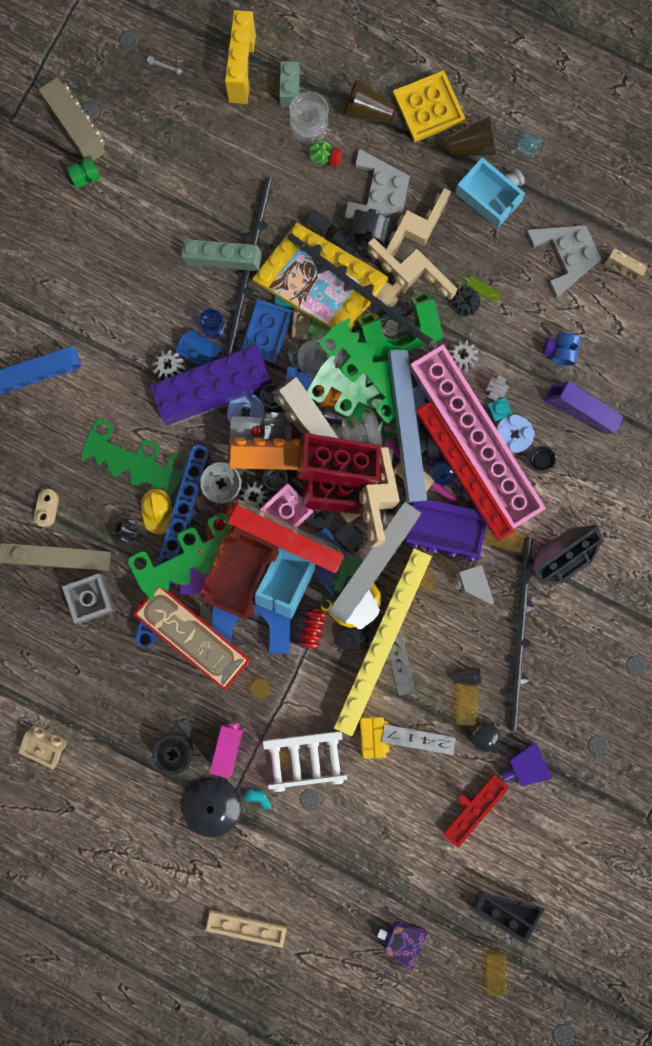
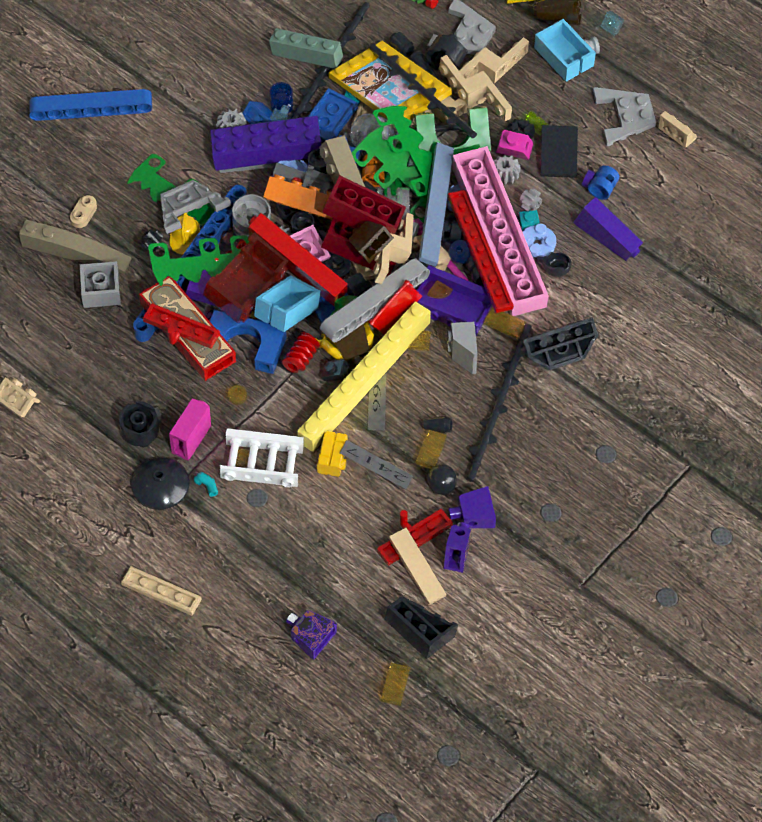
camera: 10 degrees right, 25 degrees down
(147, 473) = (187, 198): none -> light grey wing
(187, 648) = (181, 326): none -> red plate
(216, 346) = (278, 115): none -> clear light blue tile
(355, 504) = (370, 239): none -> dark brown torso
(396, 561) = (395, 307): none -> red door
(431, 519) = (439, 290): none -> clear orange tile
(464, 326) = (515, 145): none -> dark pink torso
(487, 846) = (417, 566): none -> tan tile
(511, 319) = (559, 151): none -> black tile
(520, 822) = (459, 540): none -> dark purple torso

